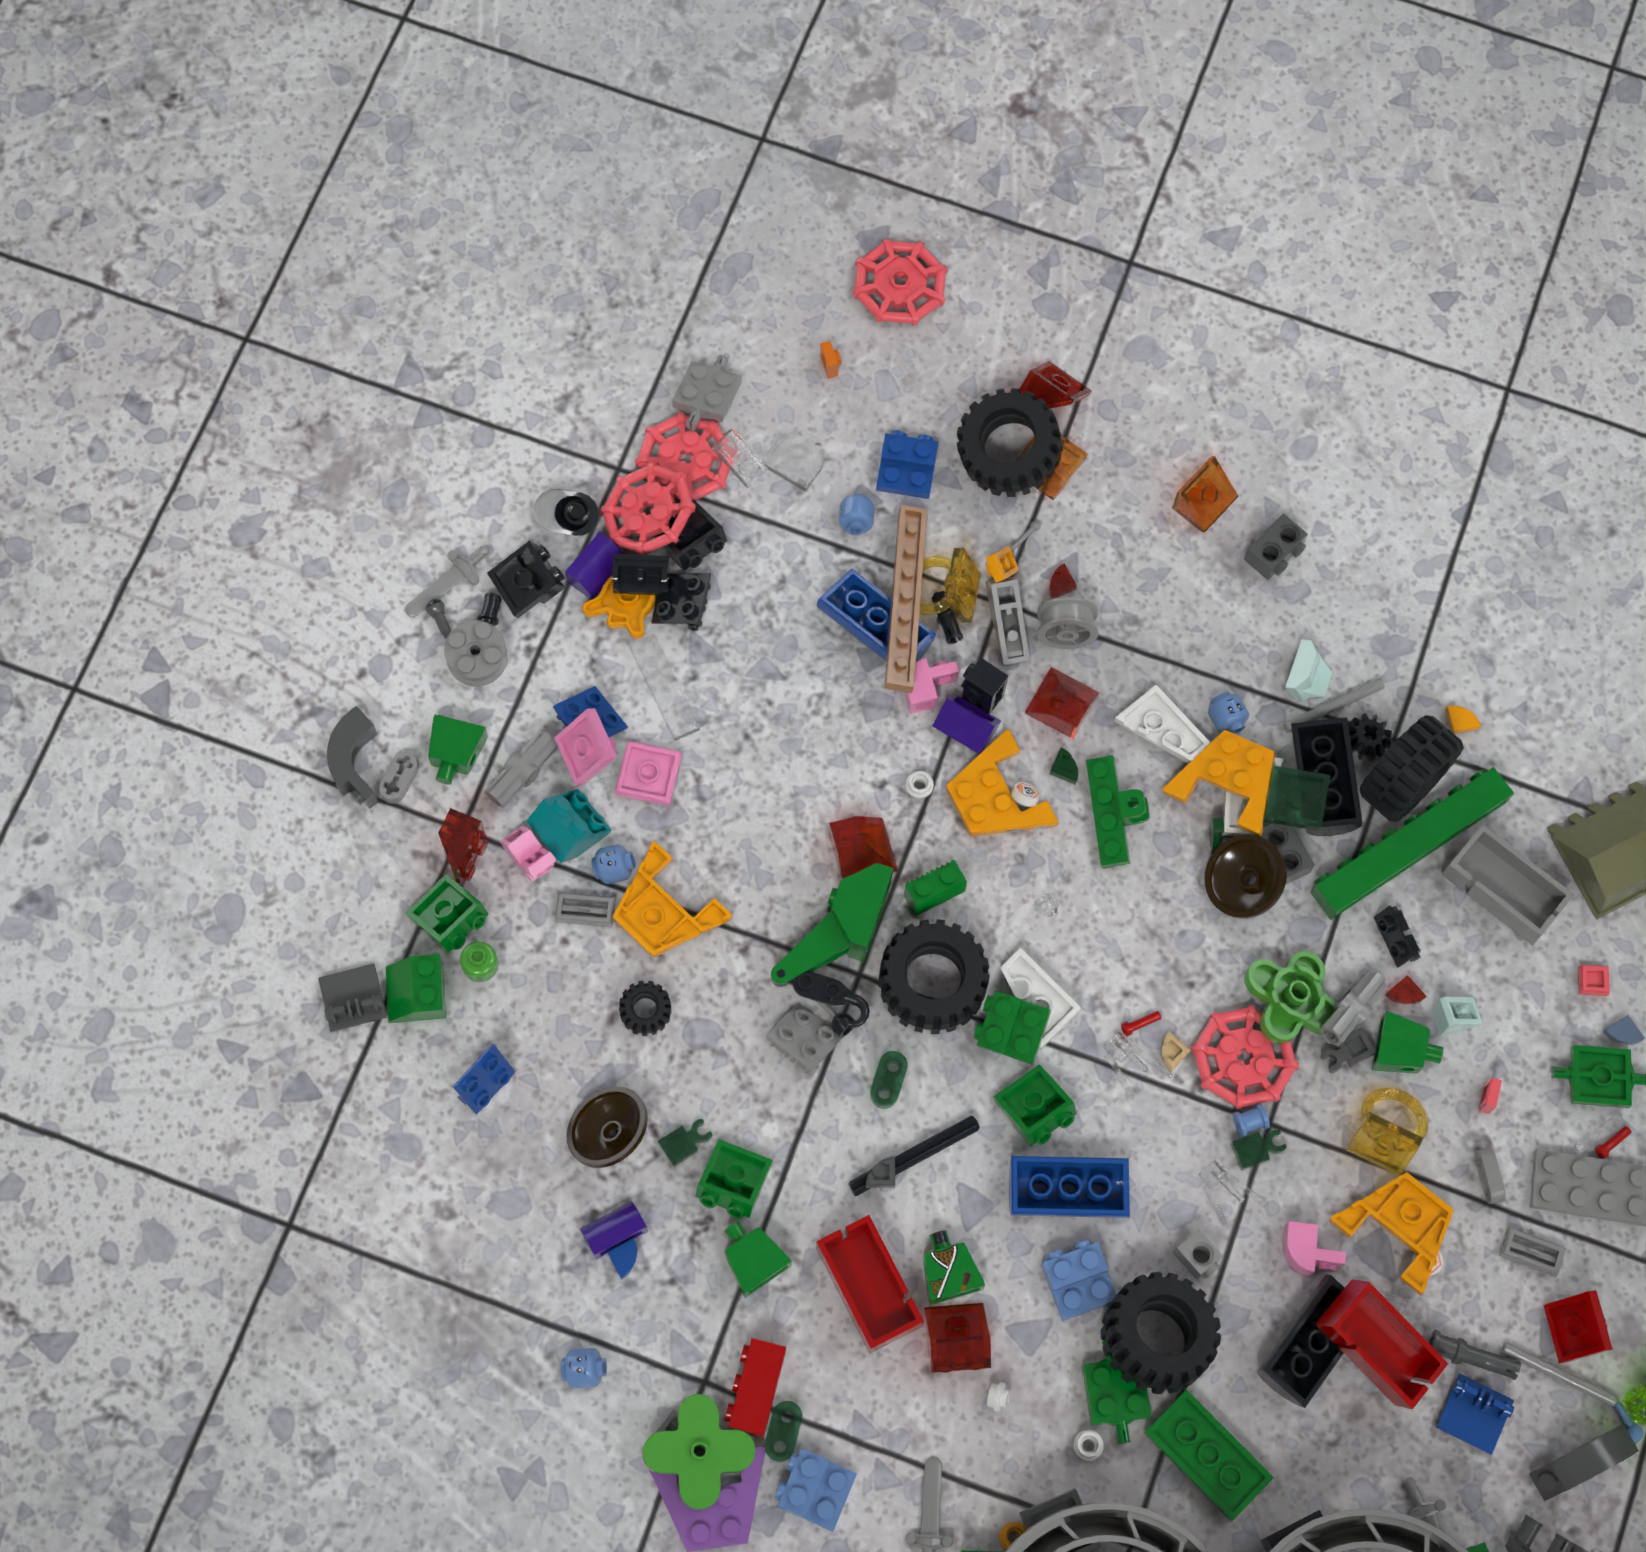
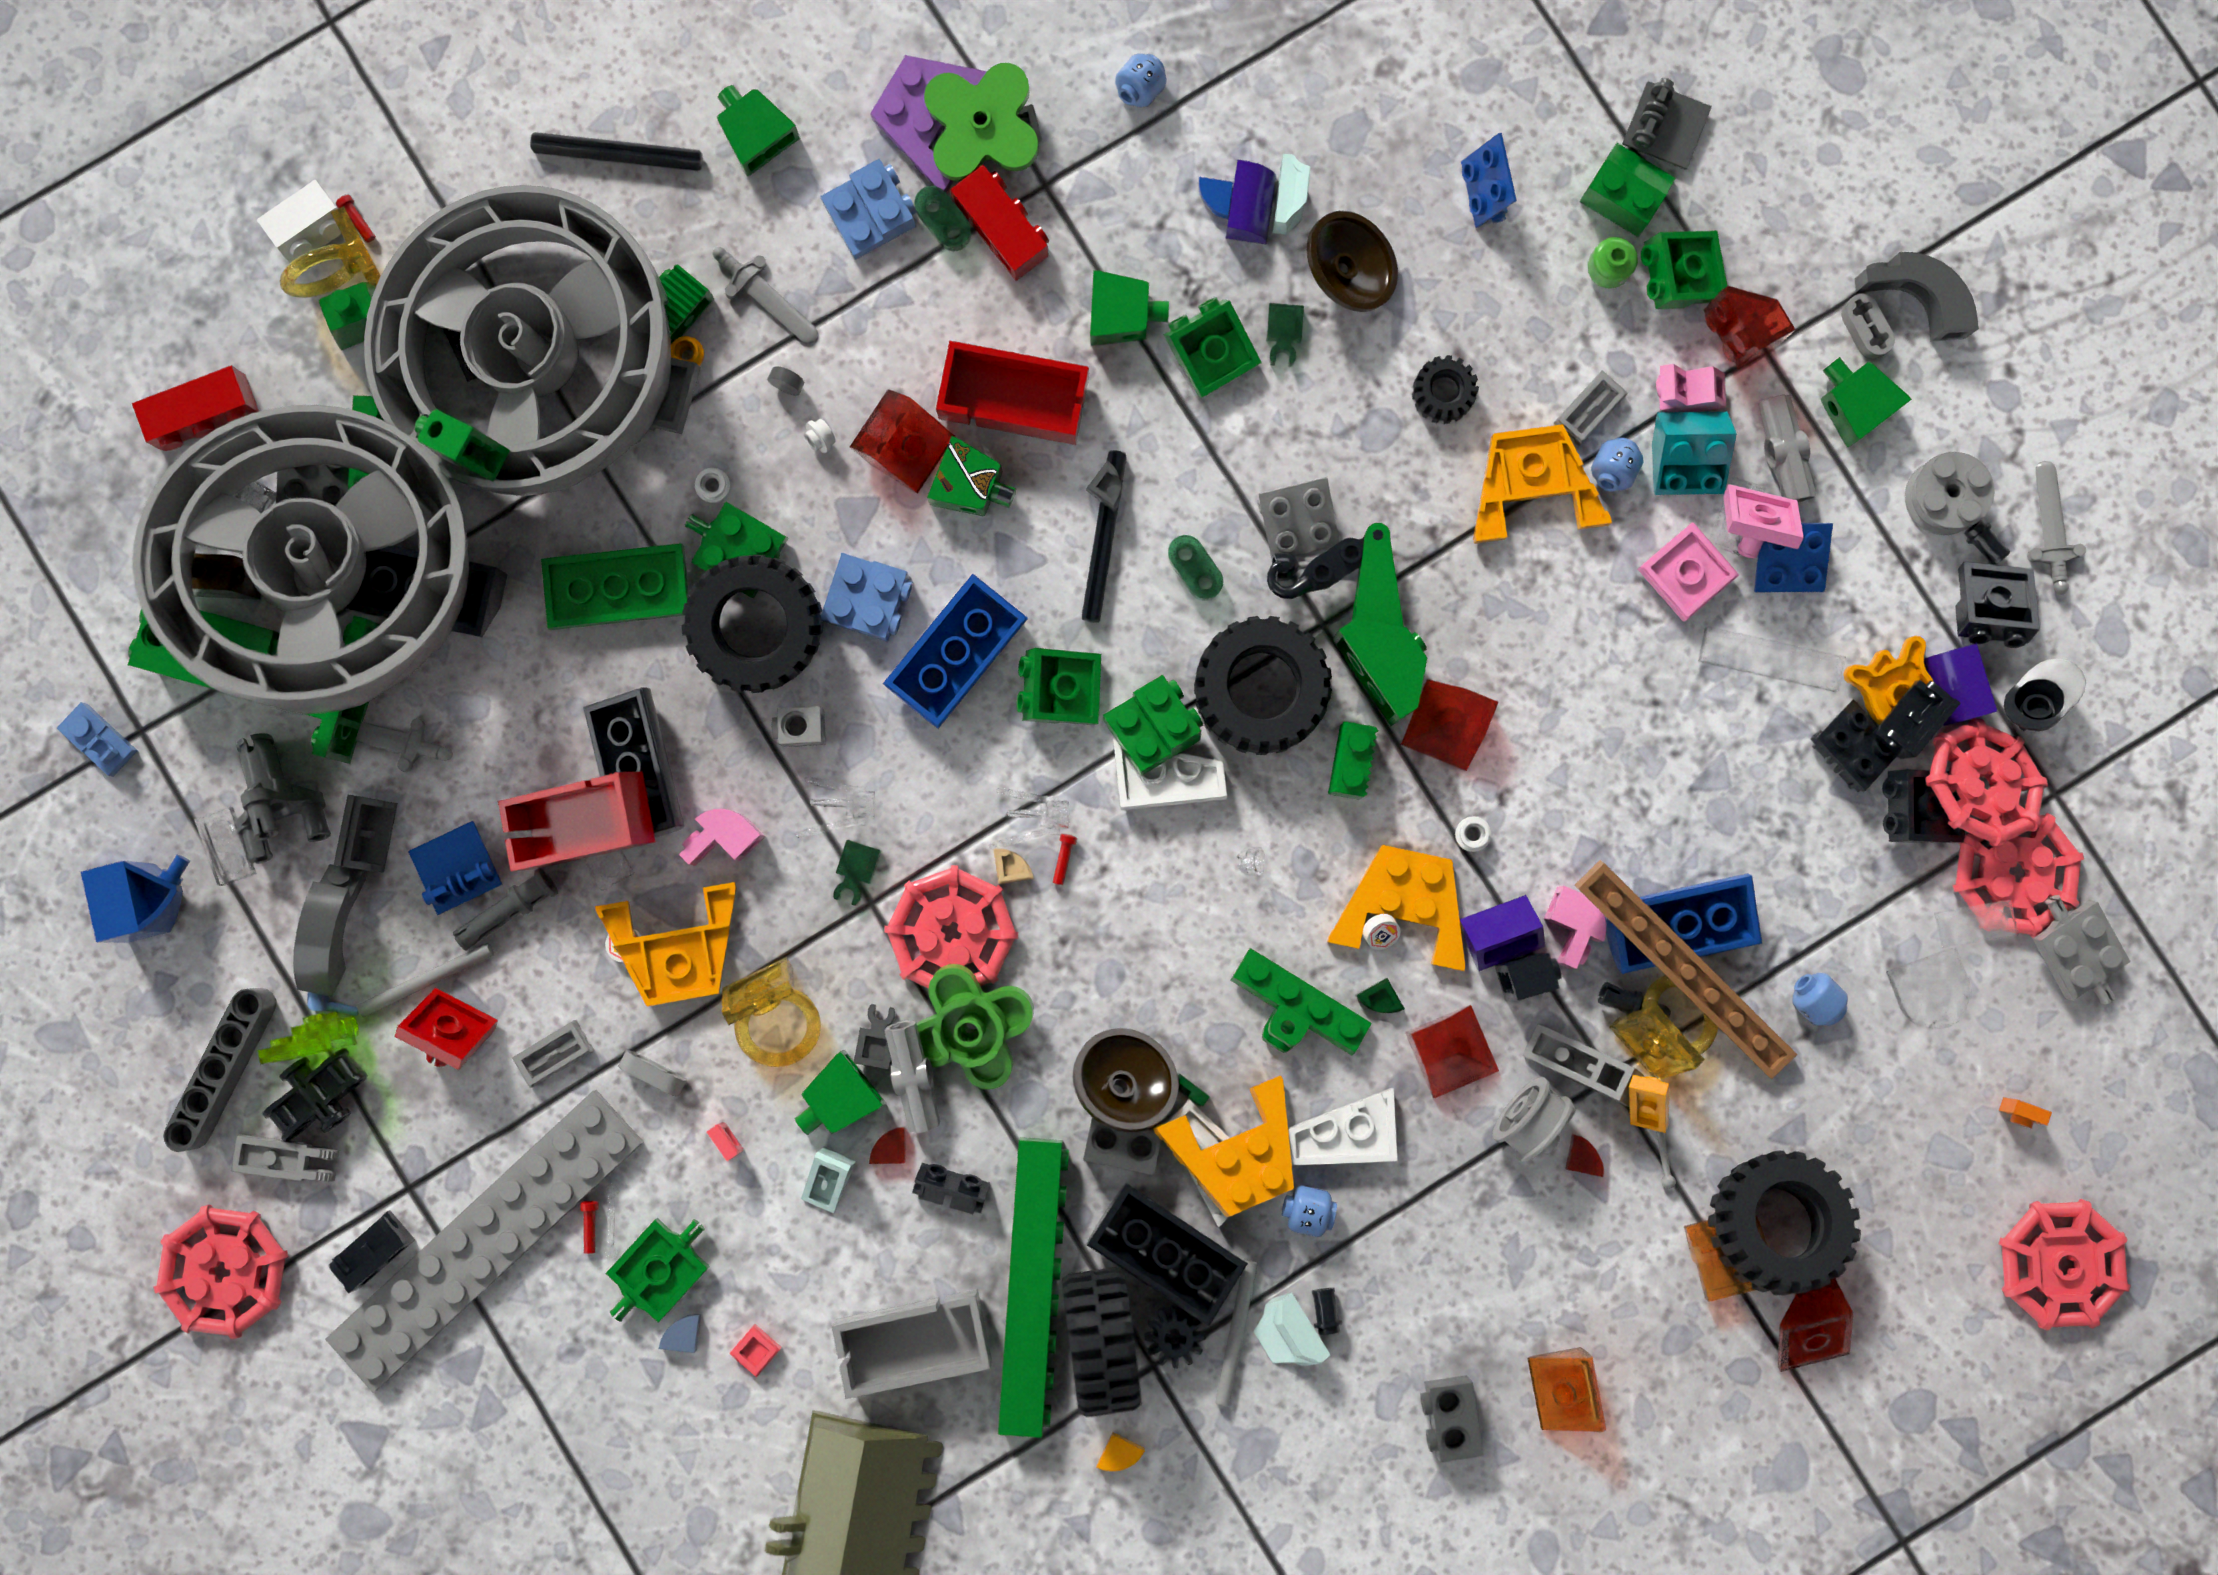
camera: 130 degrees right, 15 degrees up
(436, 610) = (2028, 491): dark grey piece -> none
(588, 1204) = (1291, 194): none -> light aqua slope
(907, 464) = (1838, 1100): blue plate -> none
(979, 1450) = (786, 380): none -> dark grey tile
(1251, 1120) = (885, 885): medium blue bush -> none
(1277, 662) = (1326, 1311): none -> black pin
(1297, 798) = (1162, 1197): clear green plate -> none
(1505, 1491) = (365, 833): none -> dark grey hinge

